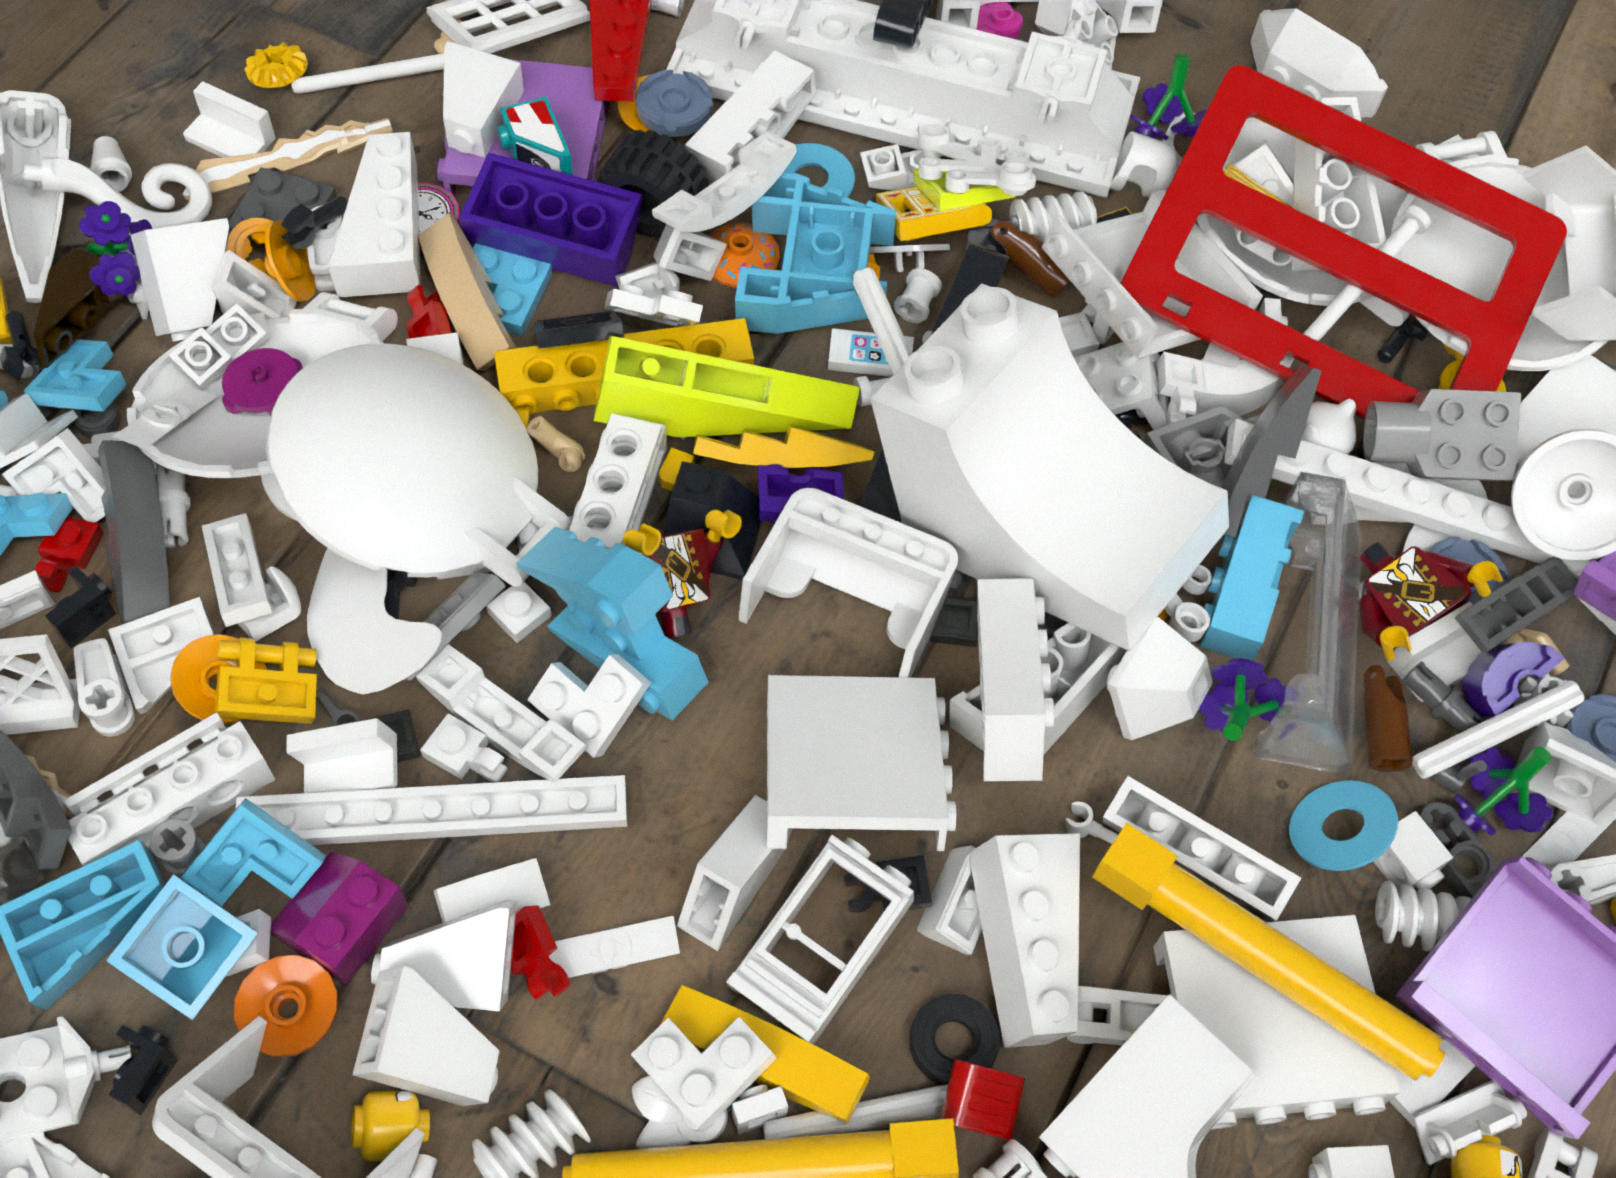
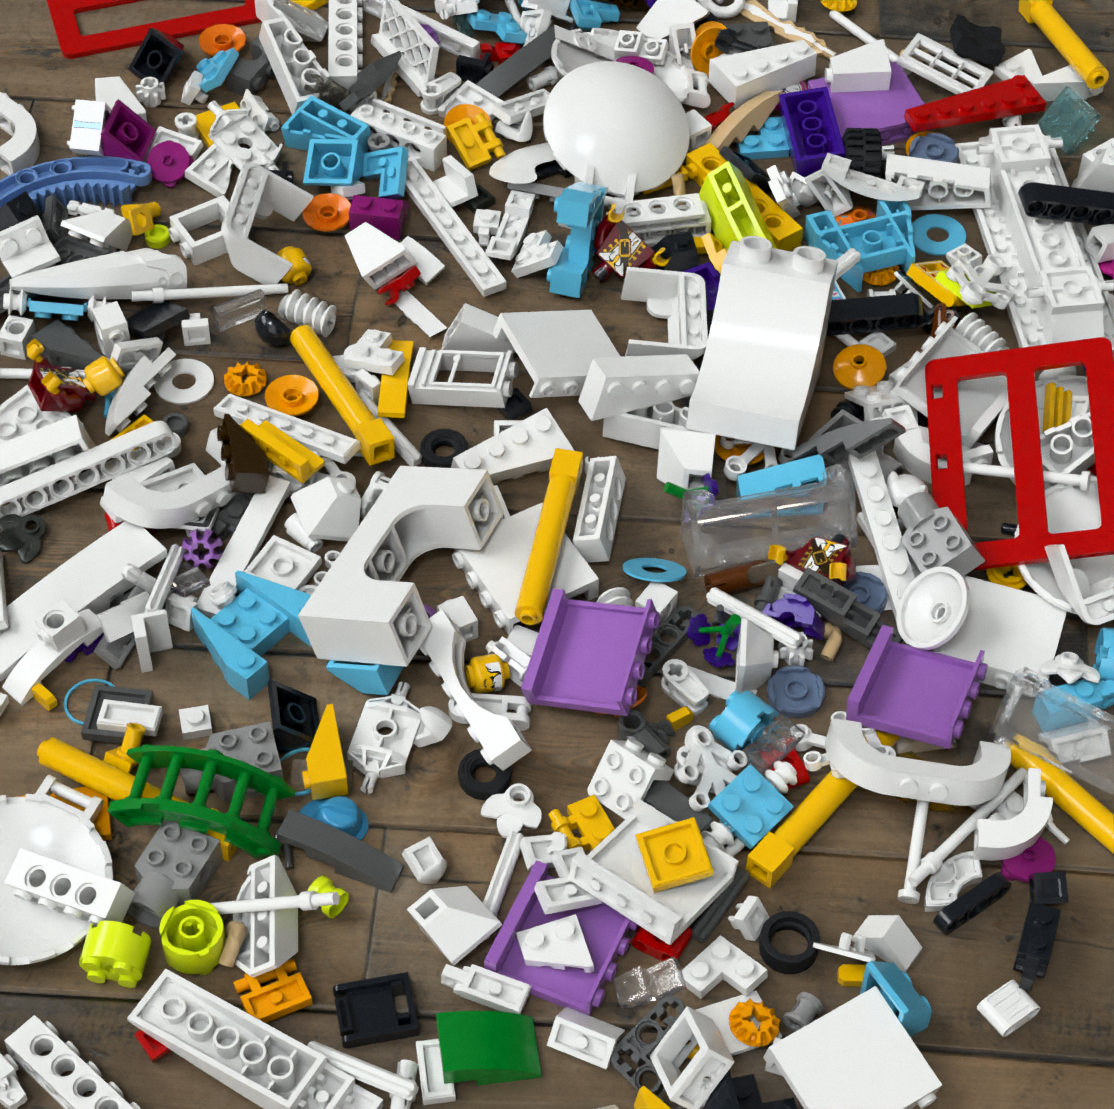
camera: 70 degrees right, 10 degrees down
(335, 713) = (478, 176): dark grey hand -> none
(424, 1043) = (329, 254): white slope -> none
(534, 135) = (853, 101): slope -> none
(982, 1099) = (415, 453): red piece -> none

